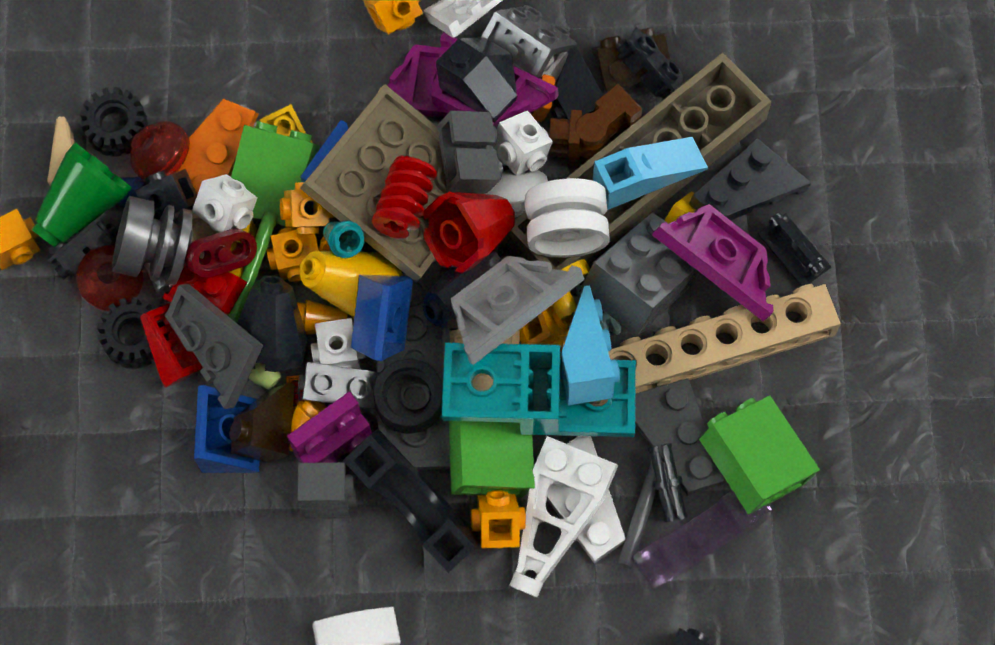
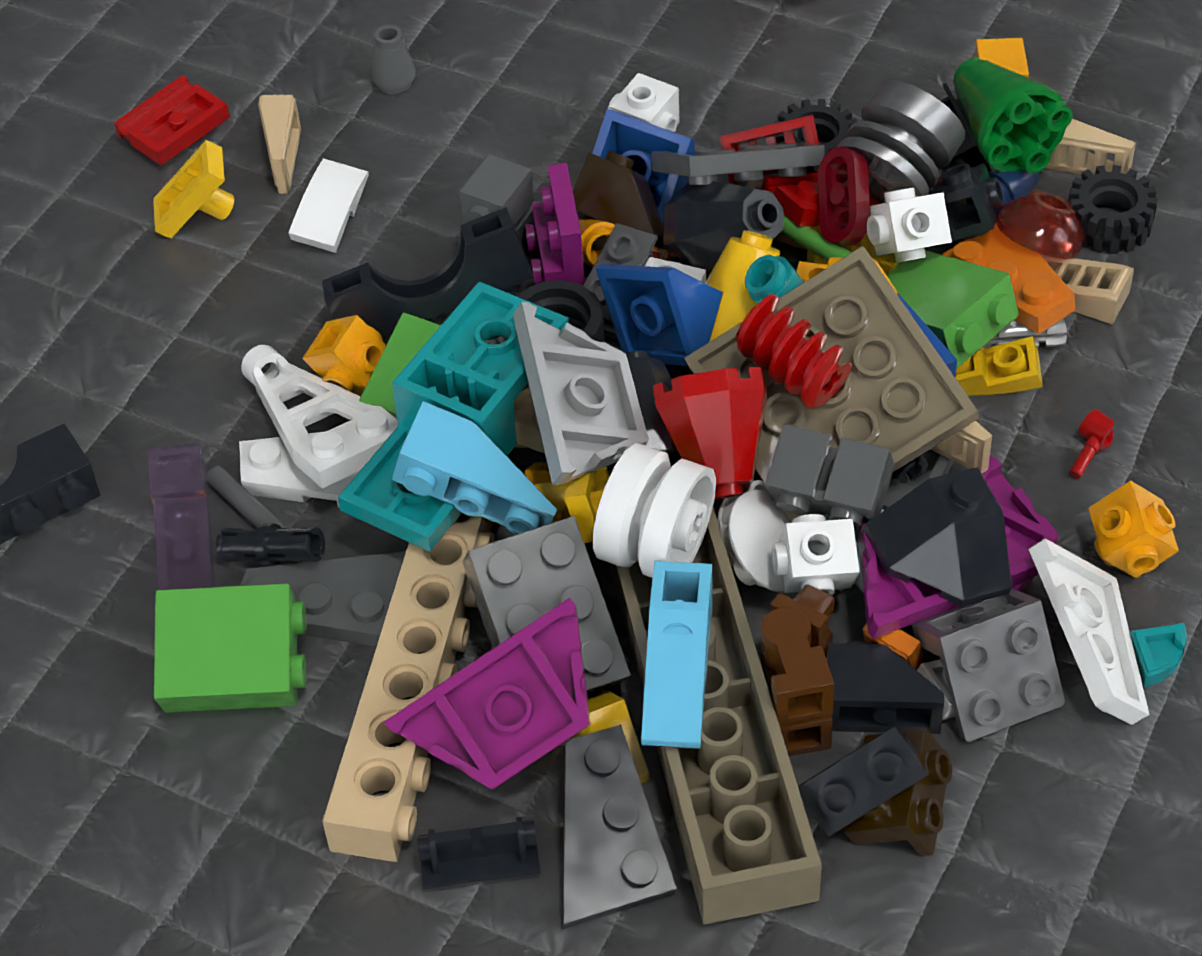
camera: 120 degrees right, 20 degrees down
(167, 453) = (649, 101): none -> white brick
(191, 94) = (1103, 286): none -> tan slope
(315, 58) = (1098, 431): none -> red hand

